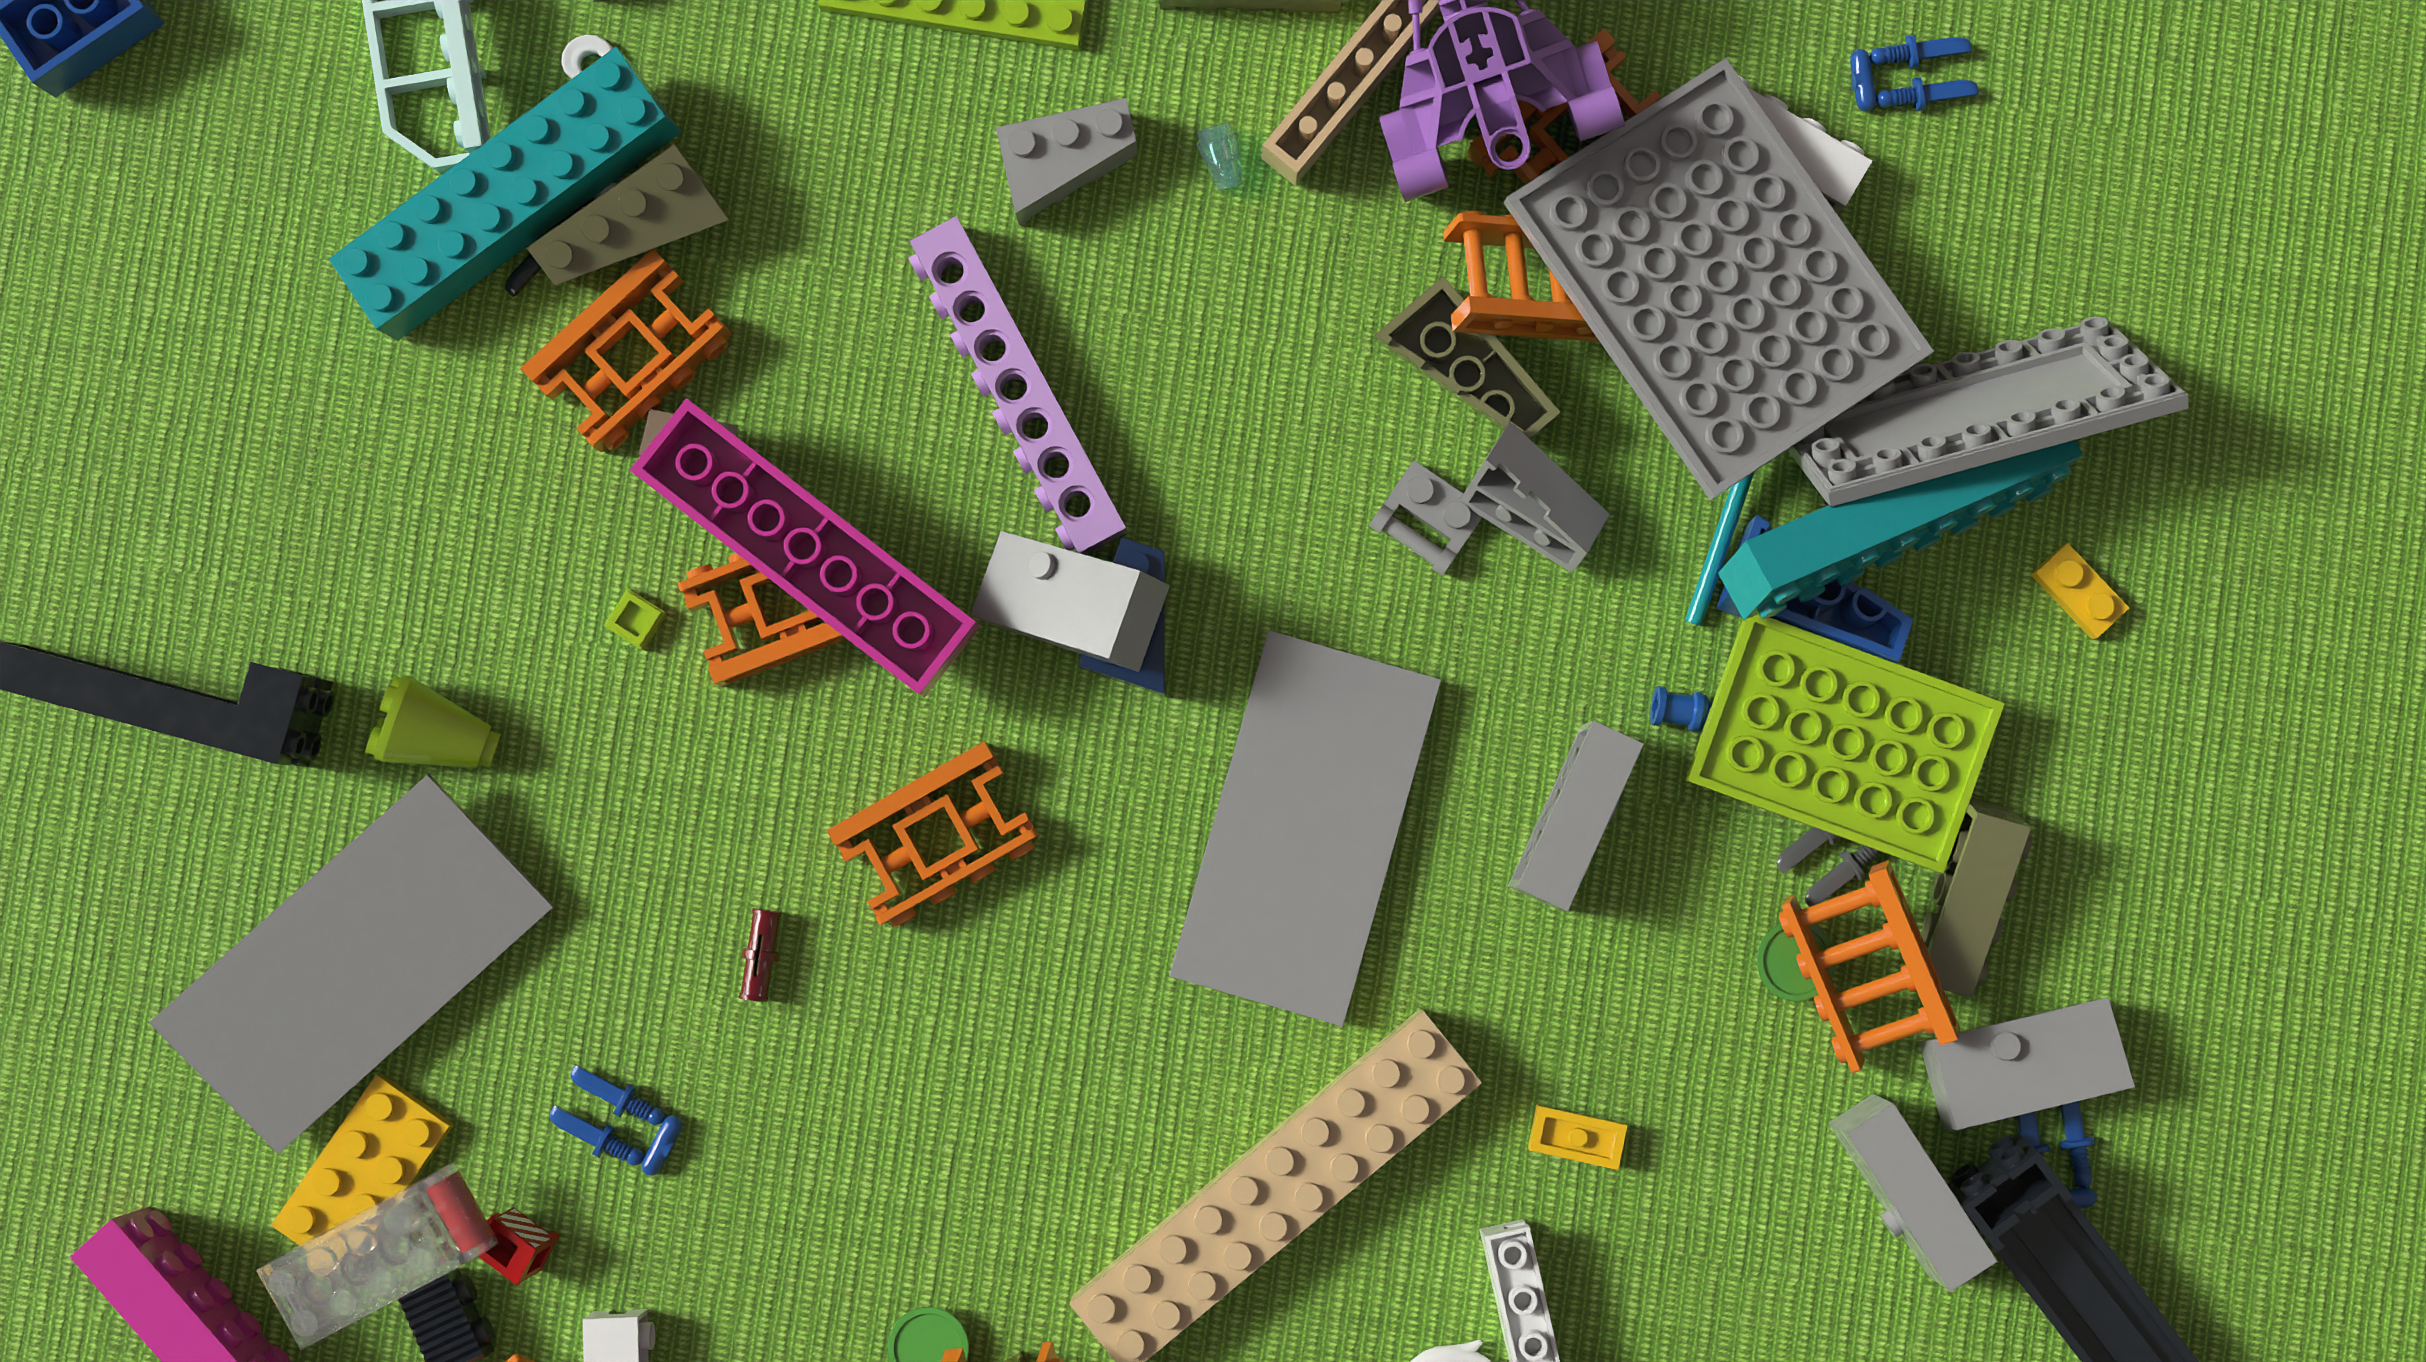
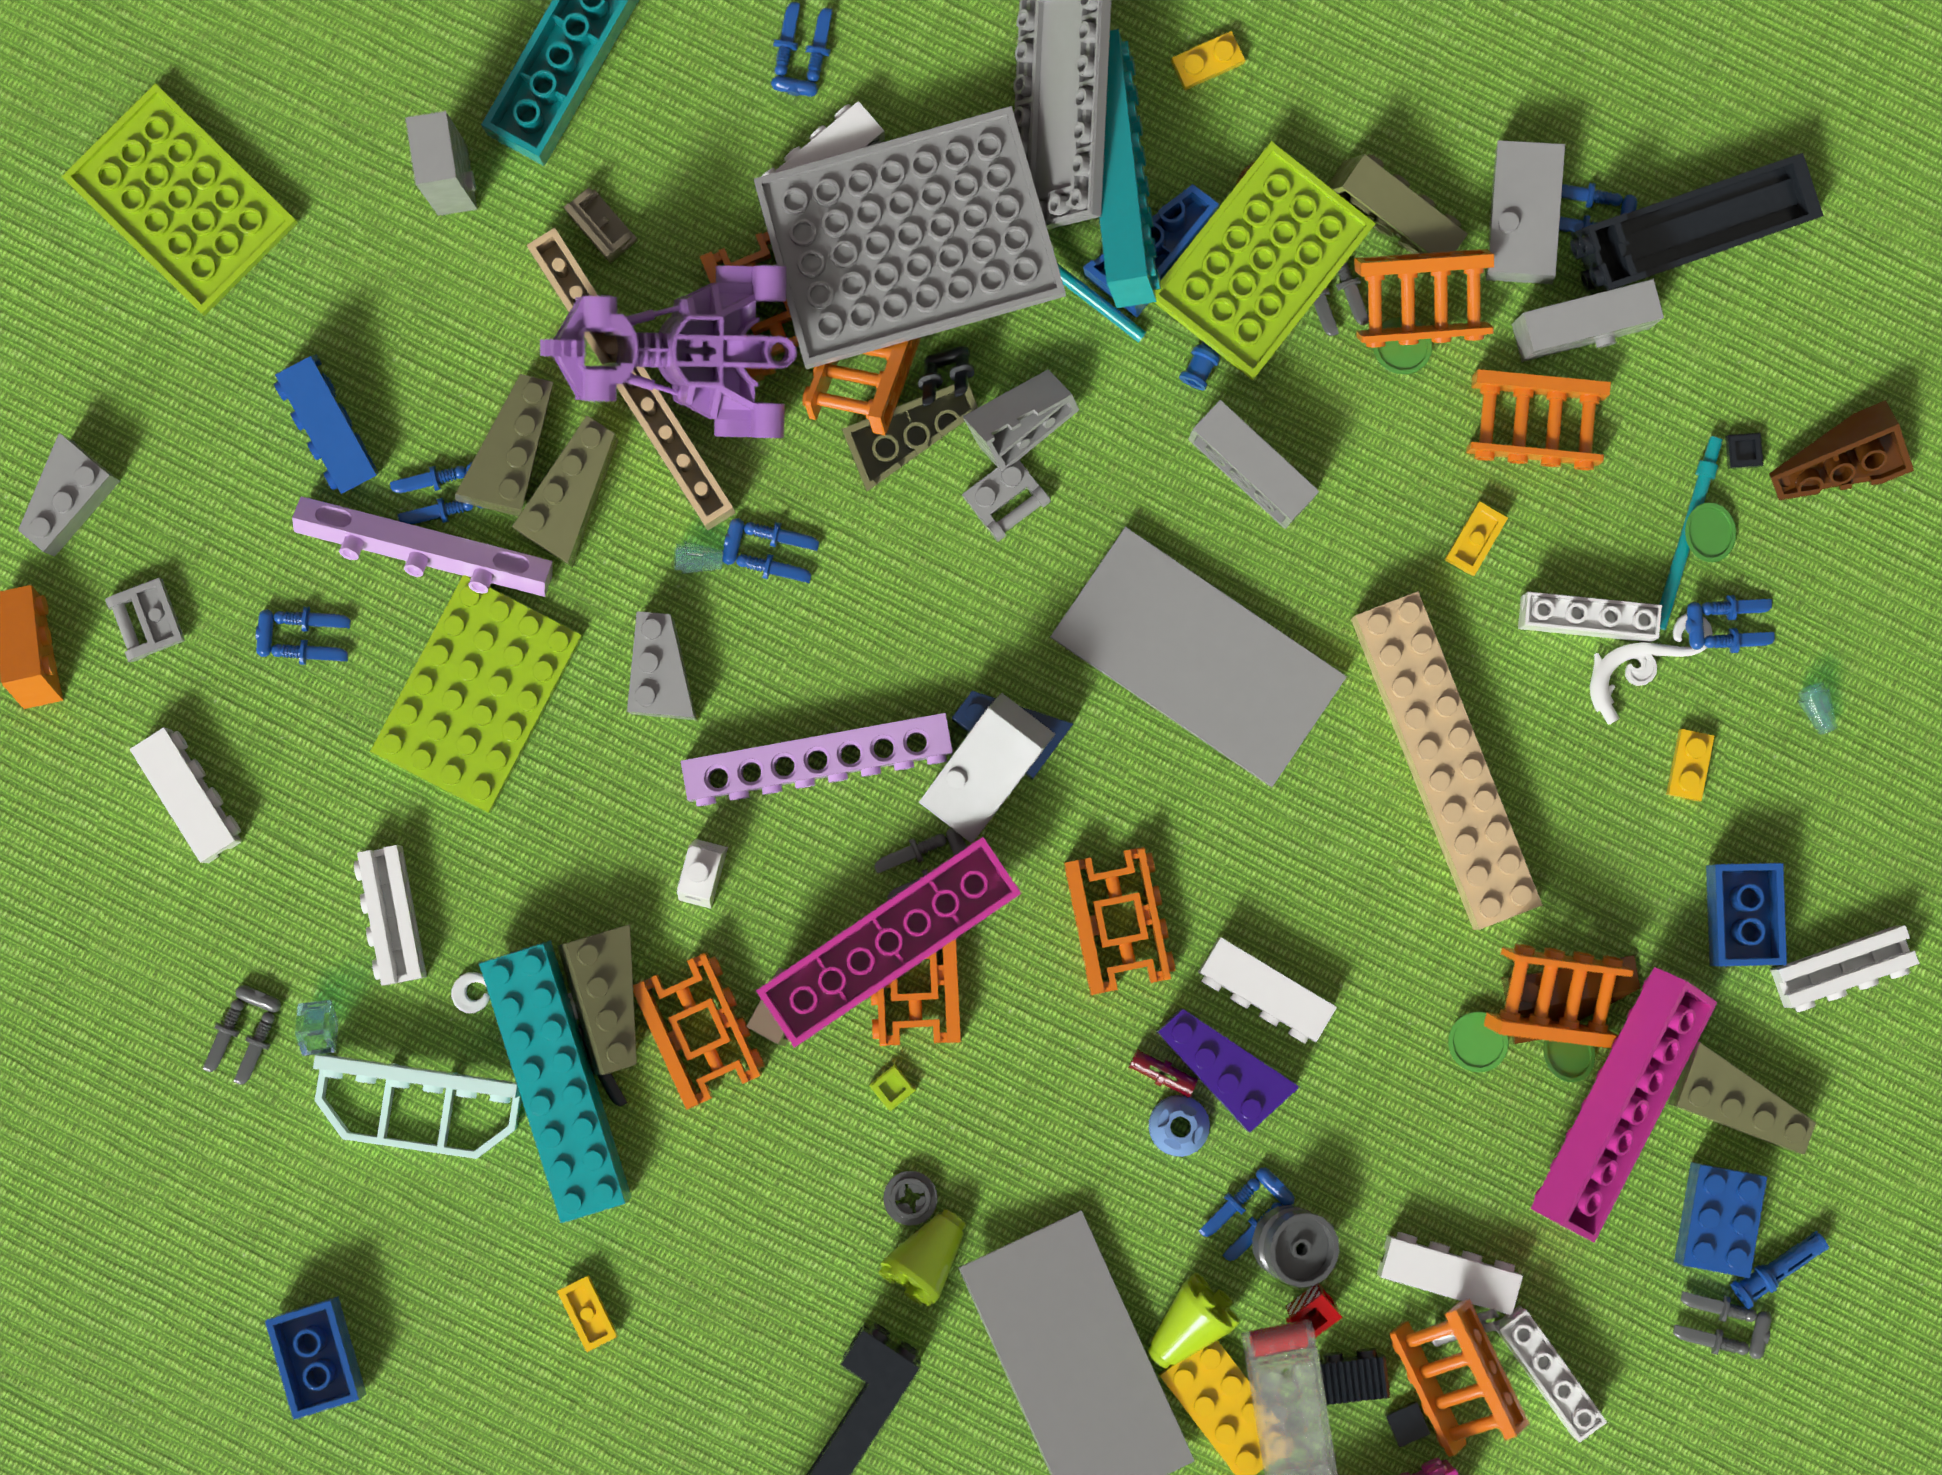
camera: 75 degrees left, 0 degrees up
(234, 333) = (587, 1313): none -> yellow plate
(454, 1095) = (1192, 1322): none -> lime cone
(483, 683) = (903, 1212): none -> dark grey gear
(588, 1196) = (1295, 1245): none -> dark grey wheel
(723, 991) = (1166, 1112): none -> medium blue piece
(784, 1043) = (1233, 1075): none -> dark purple wedge
(827, 290) = (701, 873): none -> white torso
(906, 1053) = (1267, 990): none -> white brick
(942, 551) = (915, 851): none -> dark grey piece
(1255, 194) = (768, 566): none -> blue piece
(1564, 400) = (960, 373): none -> black piece
(1804, 1180) = (1523, 388): none -> orange fence

